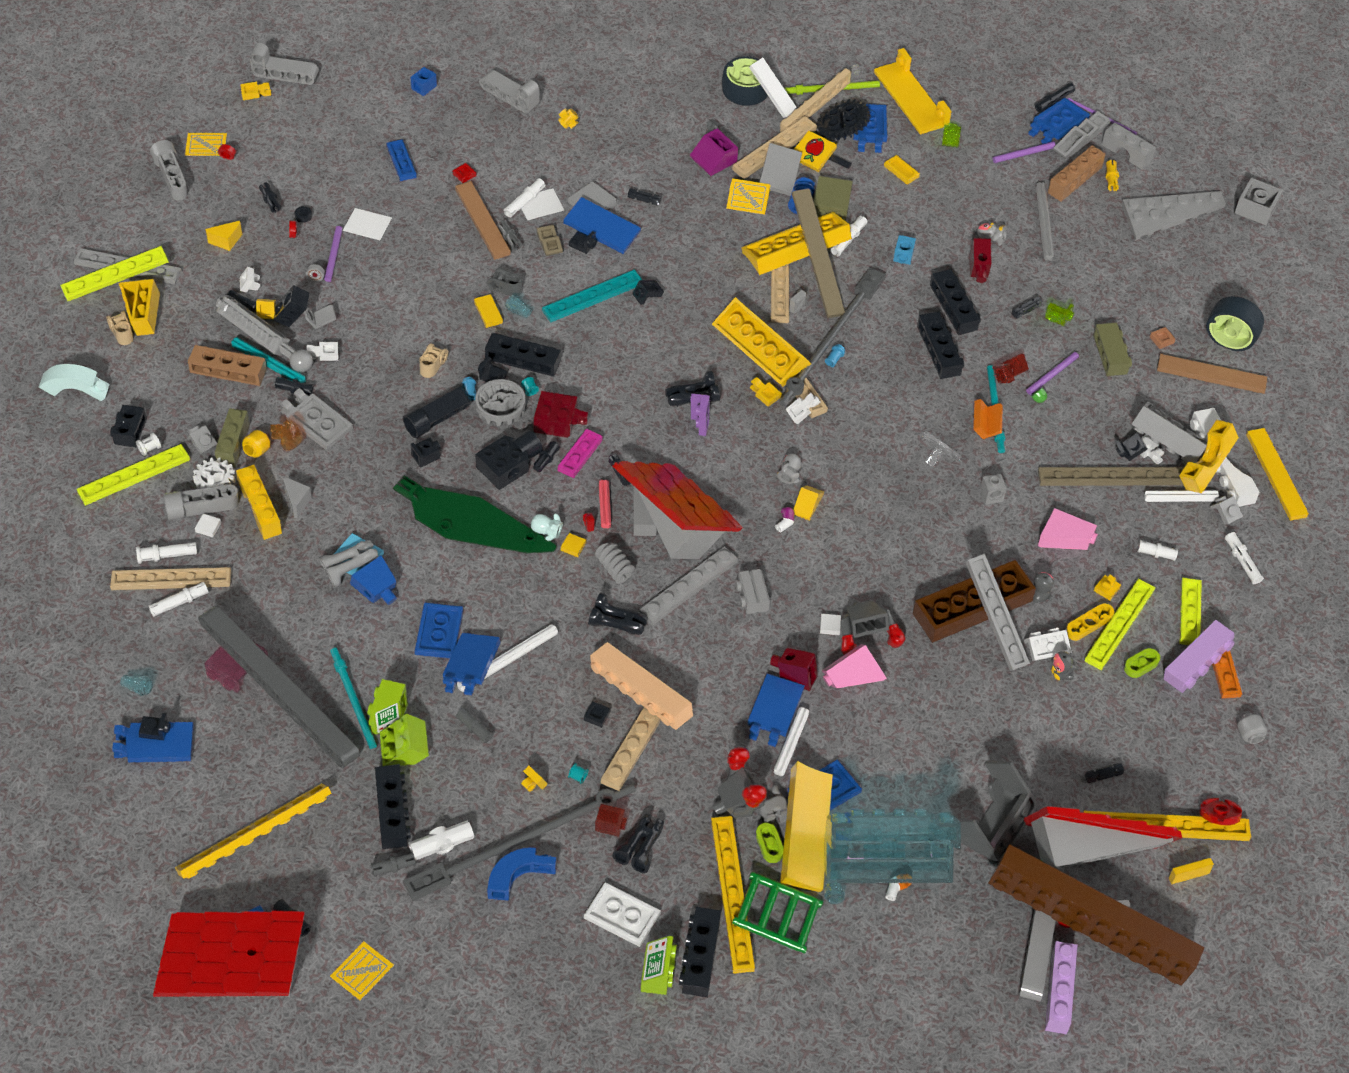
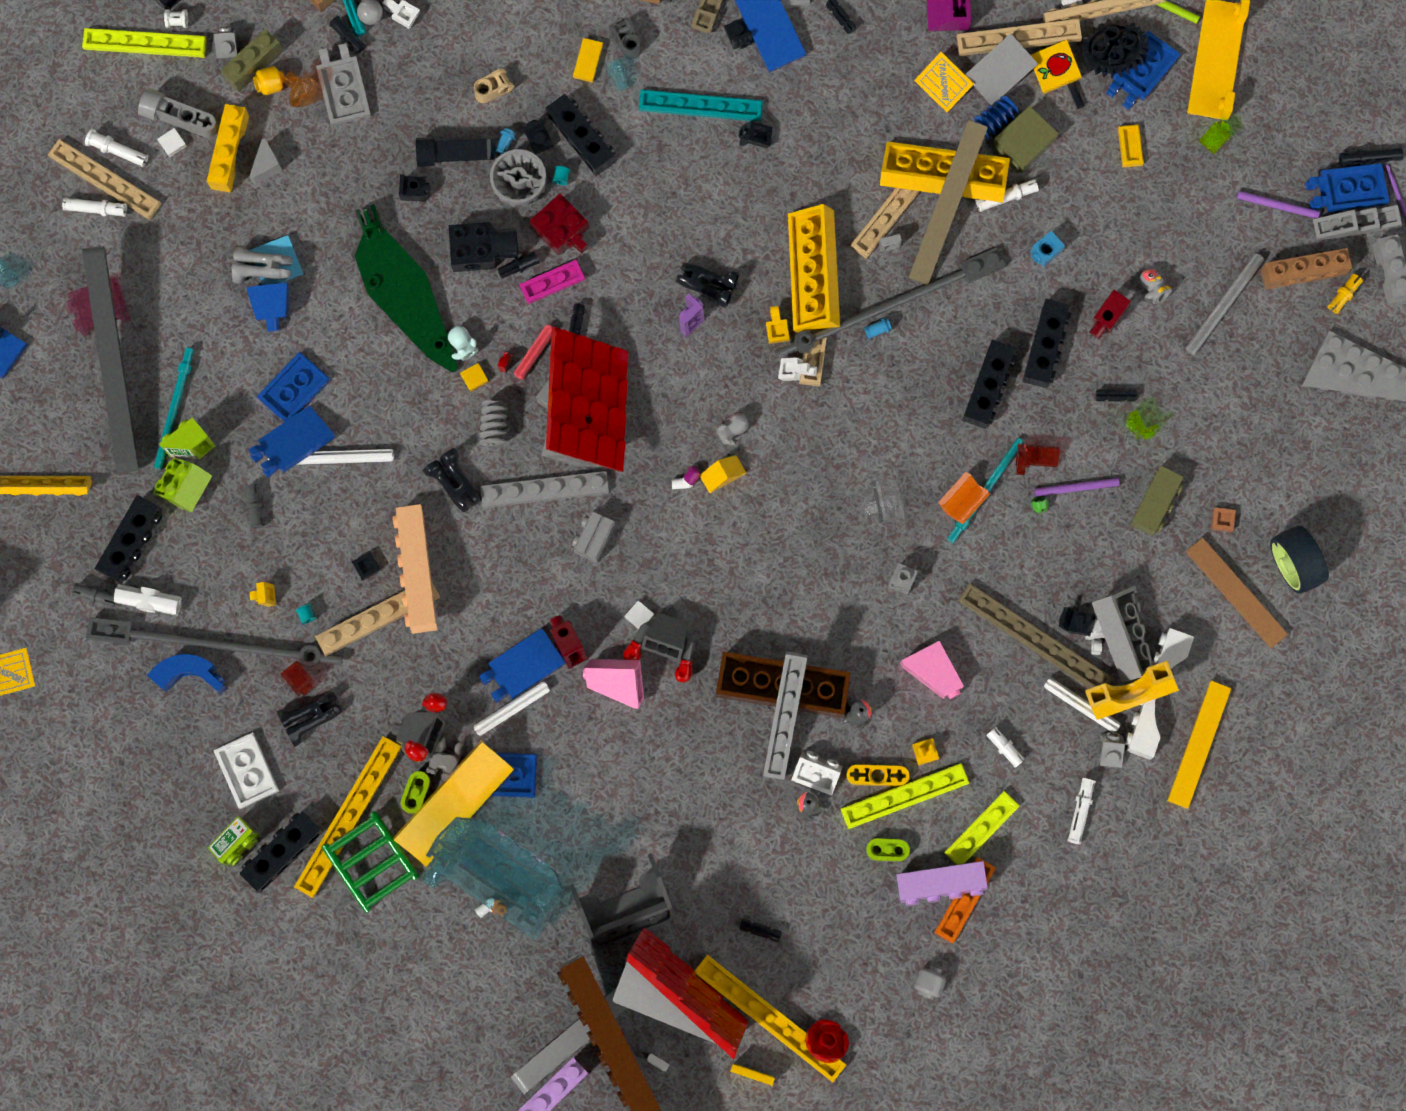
camera: 40 degrees right, 25 degrees up
(214, 474) = (213, 85): white gear -> none

